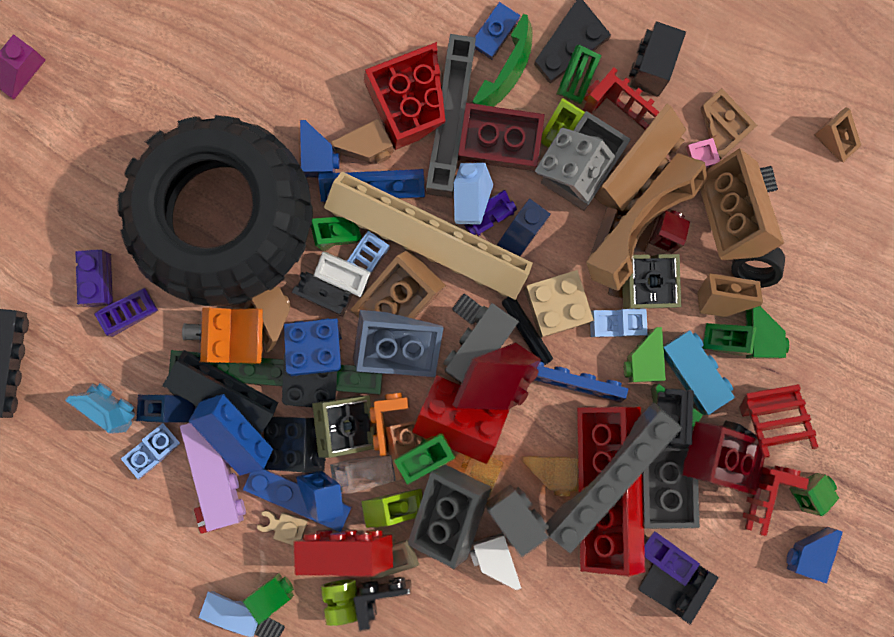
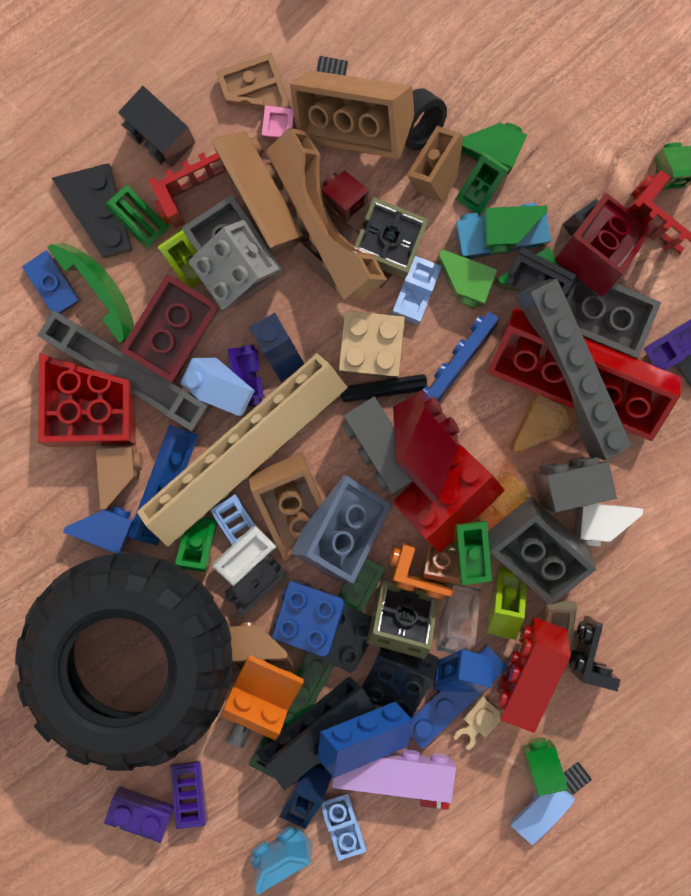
camera: 70 degrees left, 5 degrees up
(340, 602) = (577, 696): lime wheel -> none
(467, 308) = (334, 439): sticker -> none
(706, 374) = (508, 226): none -> green slope
(777, 401) = (567, 165): red plate -> none

